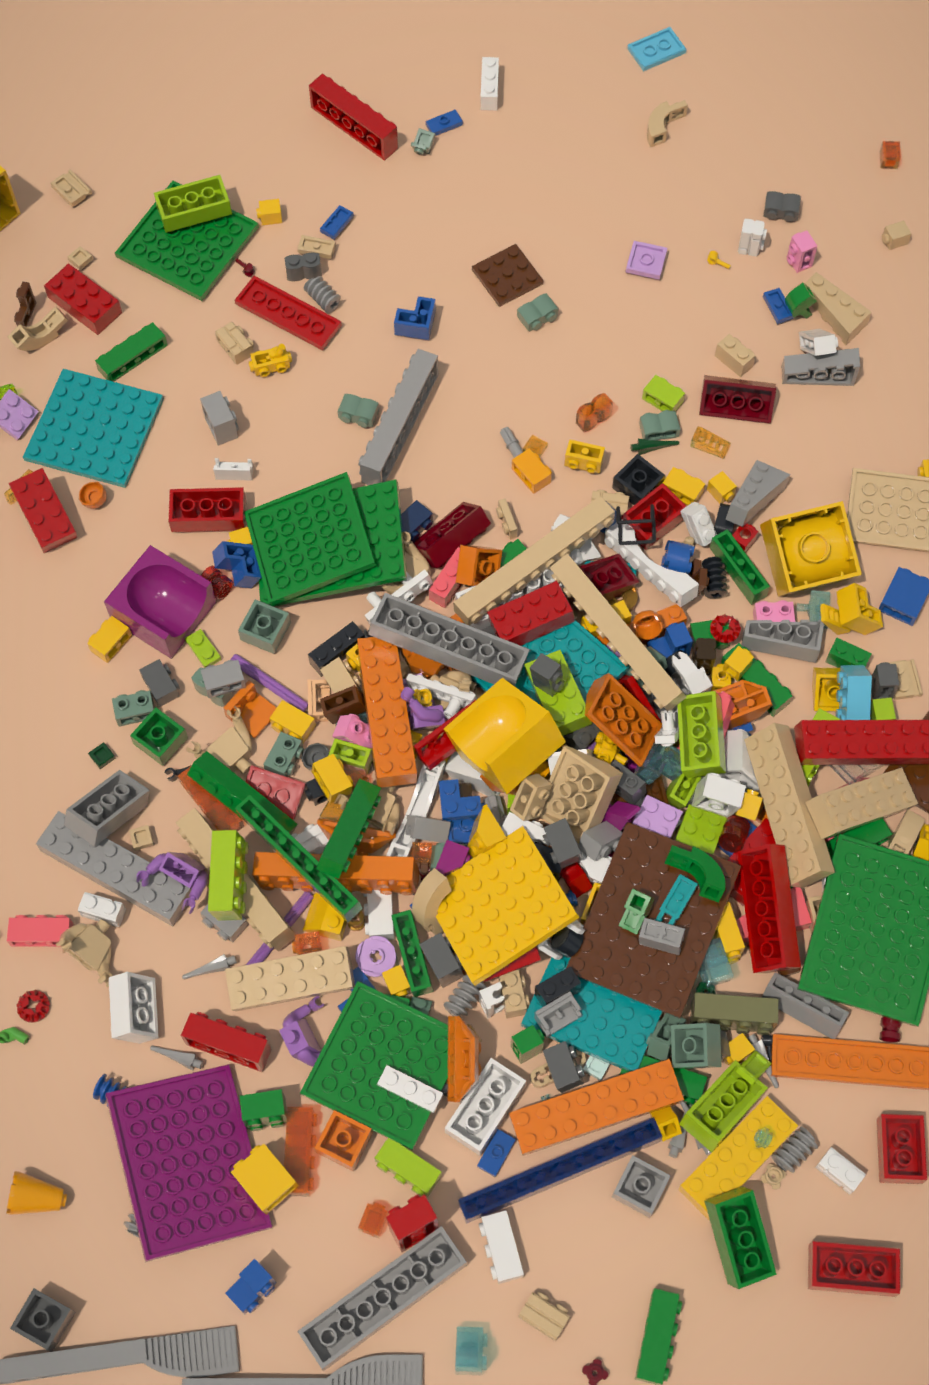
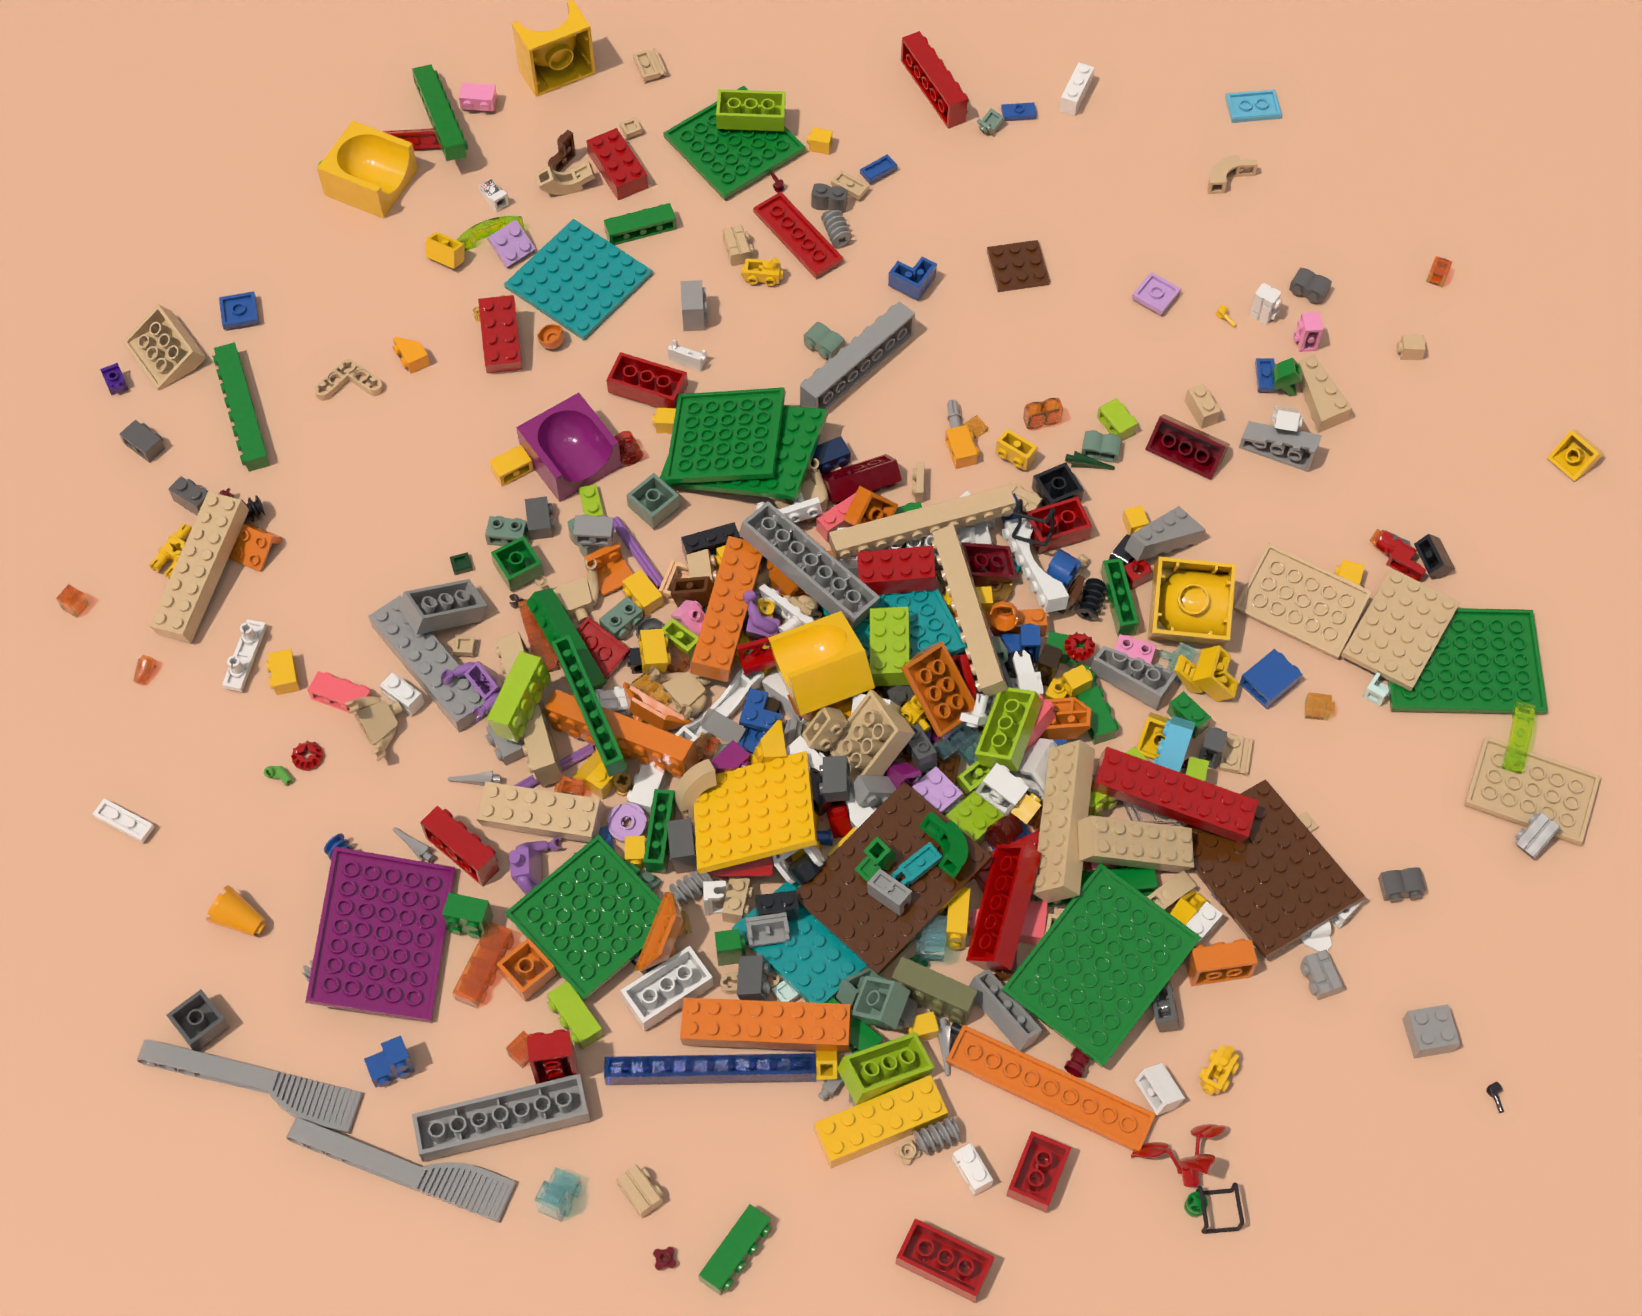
camera: 20 degrees right, 5 degrees down
(133, 1007) = (391, 786): white brick -> none
(239, 559) = (656, 434): blue brick -> none
(264, 1178) = (440, 973): yellow brick -> none
(349, 828) = (646, 696): green brick -> none
(410, 1089) = (604, 945): white plate -> none
(496, 1153) = (660, 1034): blue plate -> none
(501, 1247) = (627, 1116): white brick -> none
(537, 312) = (1030, 307): sand green brick -> none
(547, 675) = (882, 621): dark grey brick -> none
(641, 1186) = (778, 1111): light grey brick -> none
(684, 486) = (1099, 508): yellow brick -> none
(698, 523) = (1096, 544): white brick -> none
(707, 435) = (1134, 477): clear yellow slope -> none
(740, 1237) = (848, 1188): green brick -> none
(753, 1067) = (929, 1045): lime tile -> none
(763, 1138) = (907, 1107): clear light blue plate -> none

